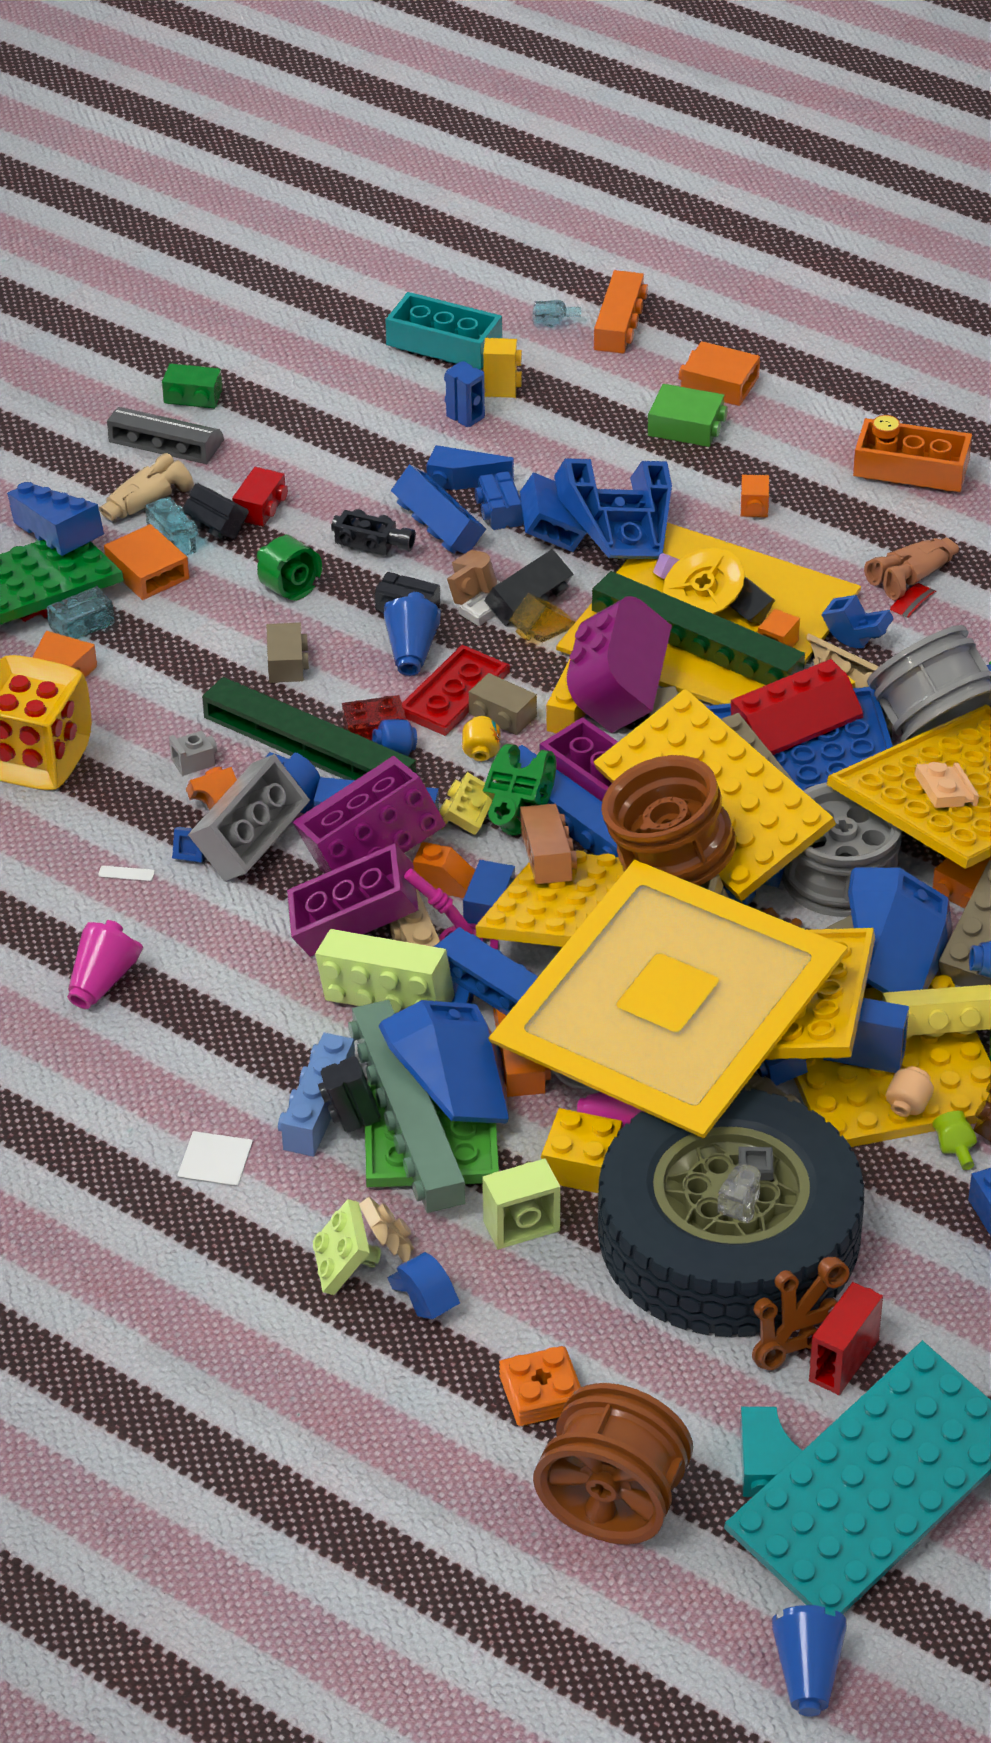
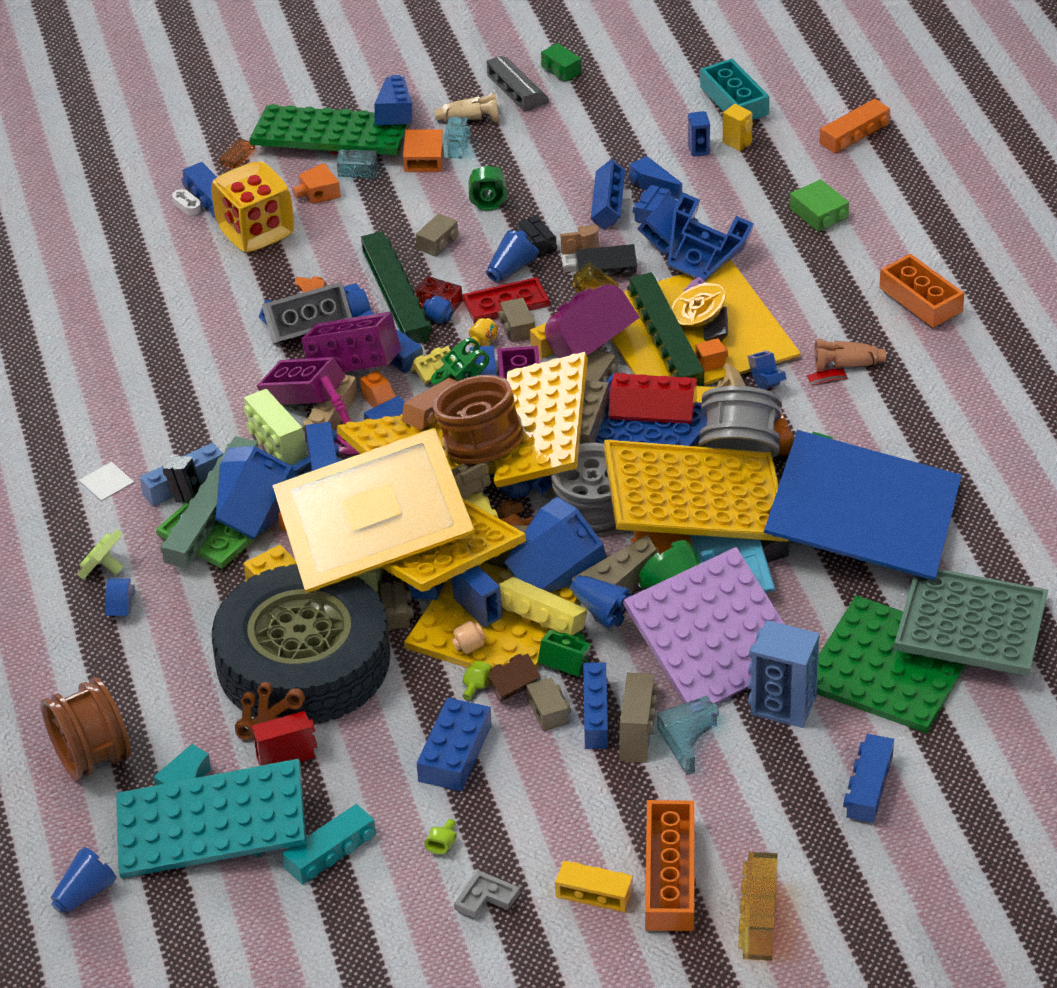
camera: 40 degrees right, 0 degrees up
(100, 962) = (153, 351): dark pink cone -> none
(126, 873) = (229, 313): white sticker -> none
(192, 752) = (328, 265): light grey brick -> none
(215, 511) = (487, 138): black brick -> none
(261, 494) = (523, 140): red brick -> none
(369, 533) = (558, 190): black brick -> none
(388, 1229) = (131, 558): tan plate -> none
(521, 1203) = (206, 581): yellowish green brick -> none
(538, 1384) = (123, 677): orange brick -> none
(552, 312) = (814, 109): clear light blue piece -> none
(720, 371) = (870, 190): orange brick -> none
(740, 1193) = (293, 630): clear leg -> none
(754, 496) = (801, 271): orange brick -> none
(758, 1157) = (323, 622): dark grey tile -> none
(886, 427) = (912, 263): tile -> none
(946, 785) = (665, 479): light nougat plate -> none

